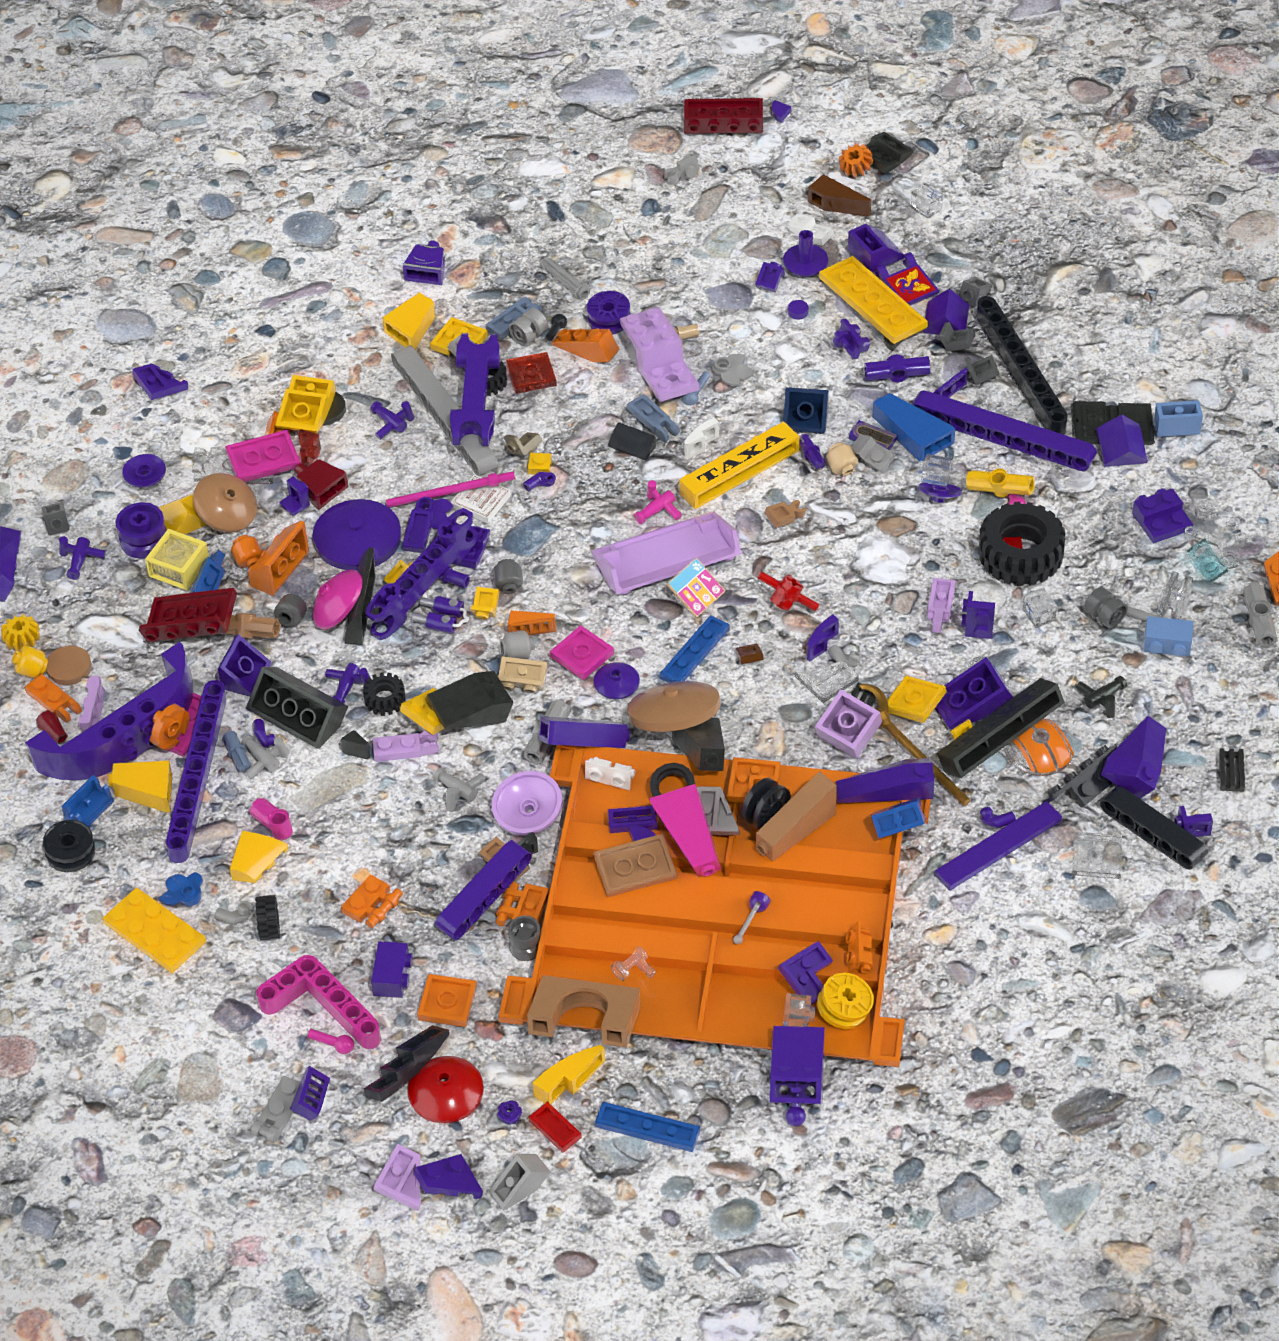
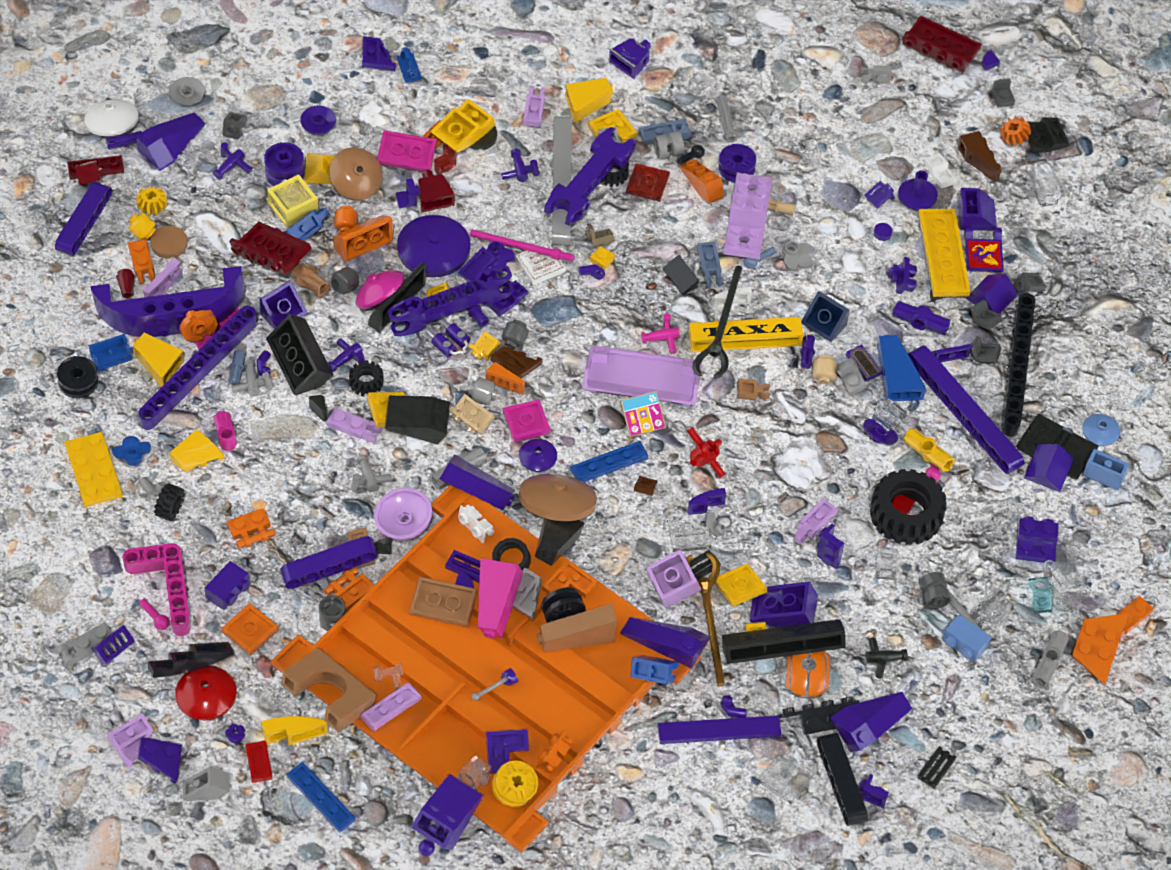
camera: 25 degrees right, 5 degrees up
(200, 376) = (408, 66): none -> blue hinge
(363, 356) = (534, 108): none -> lavender hinge
(527, 601) = (515, 361): none -> reddish brown wing
(659, 995) = (390, 707): none -> lavender tile
(724, 489) = (715, 348): none -> pearl dark grey piece
(814, 134) = (1002, 93): none -> dark grey bracket
(1140, 388) = (1100, 435): none -> medium blue dish

